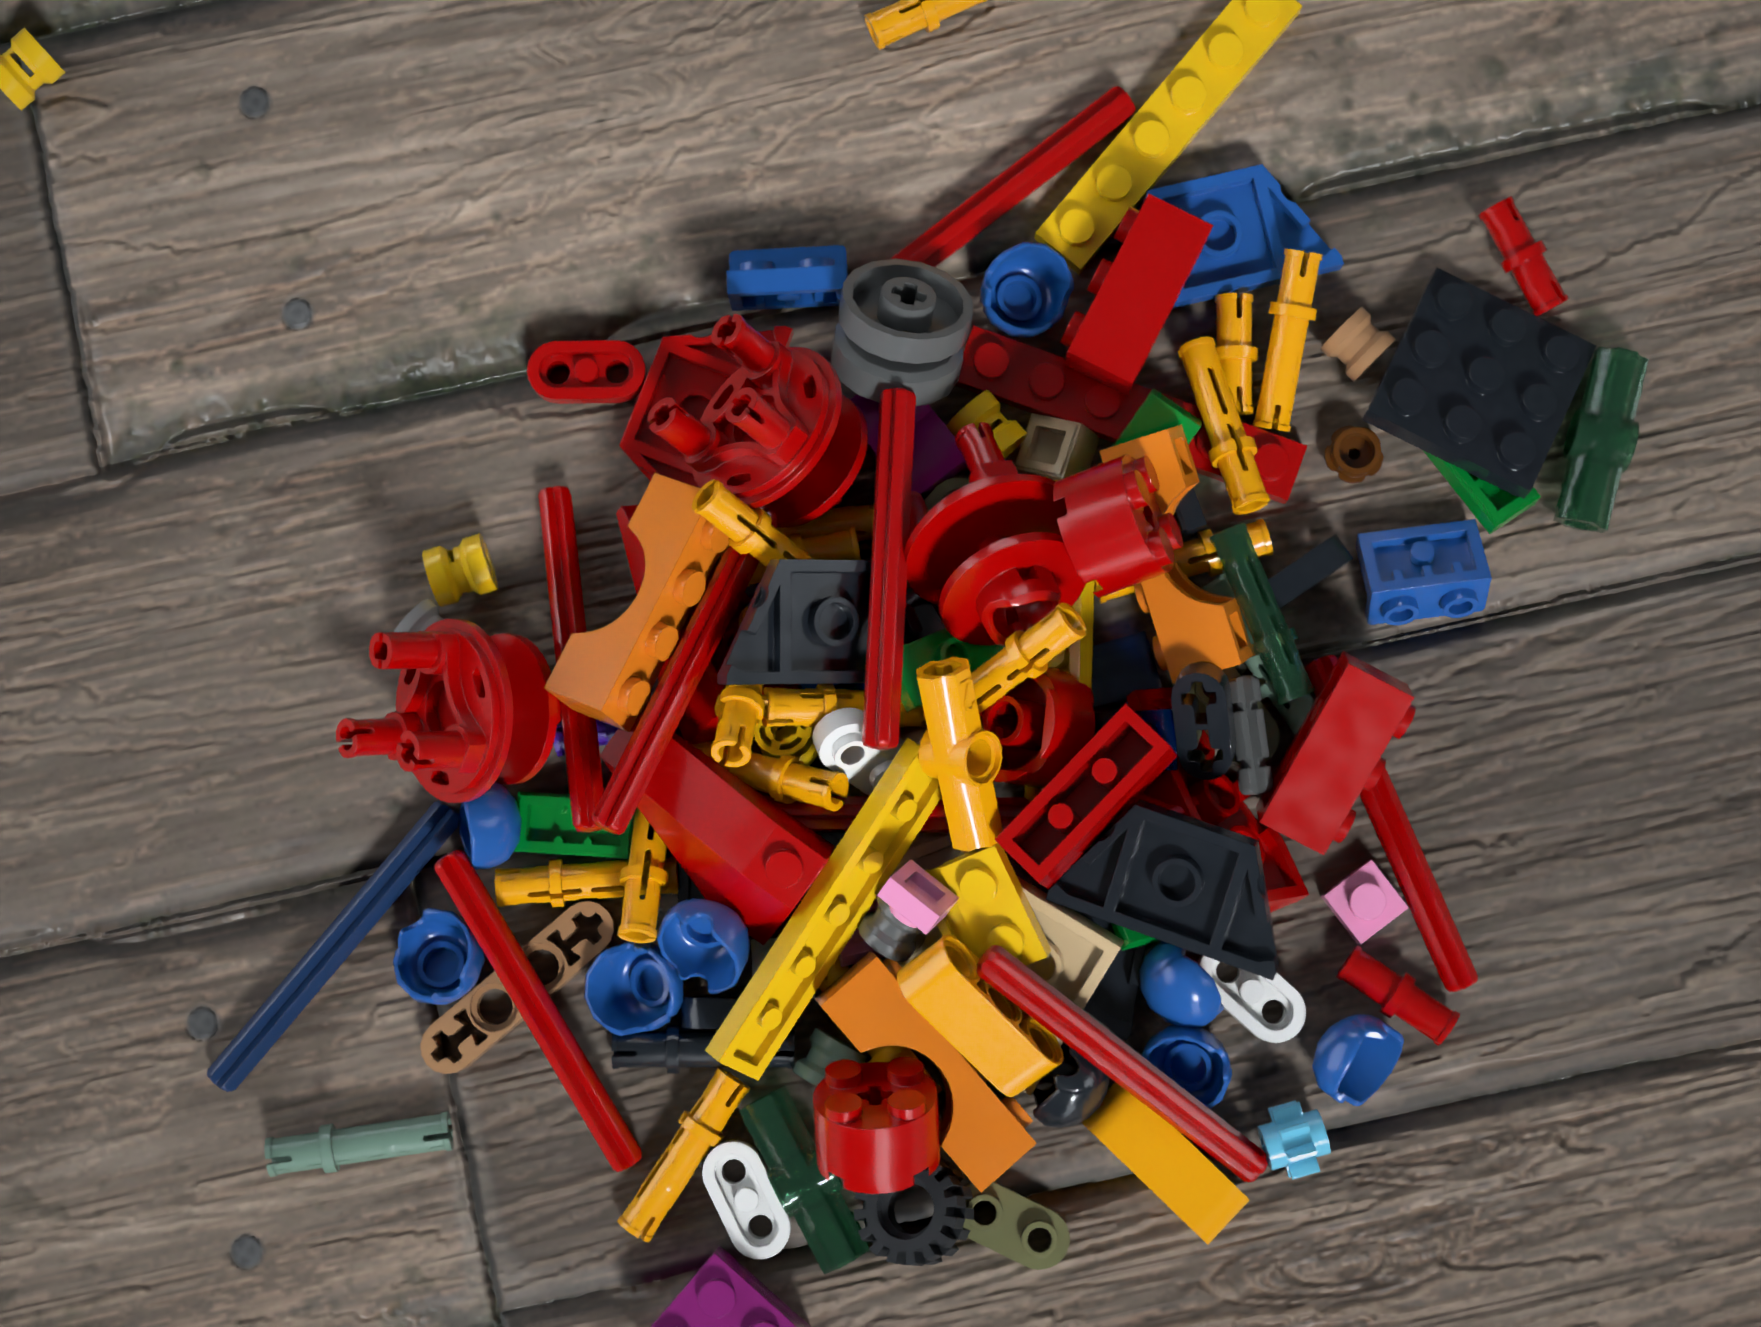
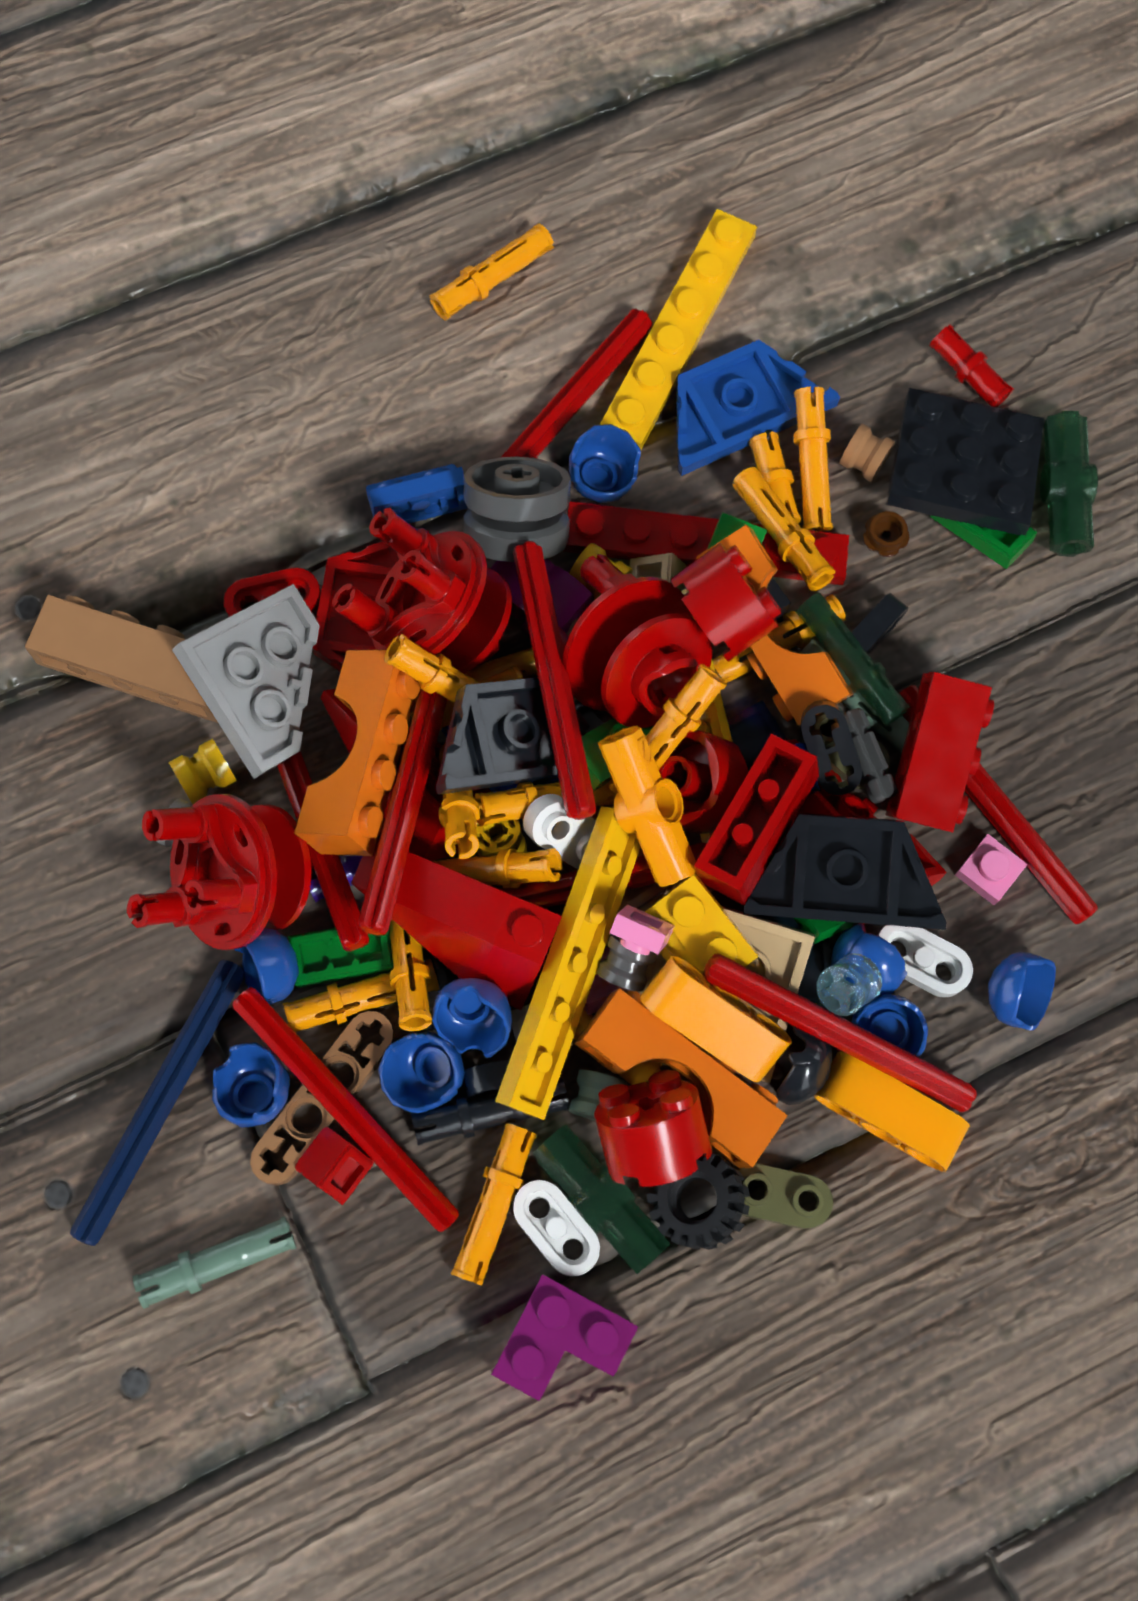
camera: 25 degrees left, 10 degrees down
(406, 413) = (114, 653): none -> medium nougat brick
(512, 1068) = (334, 1165): none -> red slope
(545, 476) = (256, 676): none -> light grey plate
(1135, 293) = (689, 445): red brick -> none
(1146, 1012) = (845, 997): none -> clear light blue wheel
(1294, 1139) = (991, 1067): medium azure gear -> none
(1398, 995) = (1039, 934): red pin -> none
(1423, 572) = (965, 609): blue bracket -> none

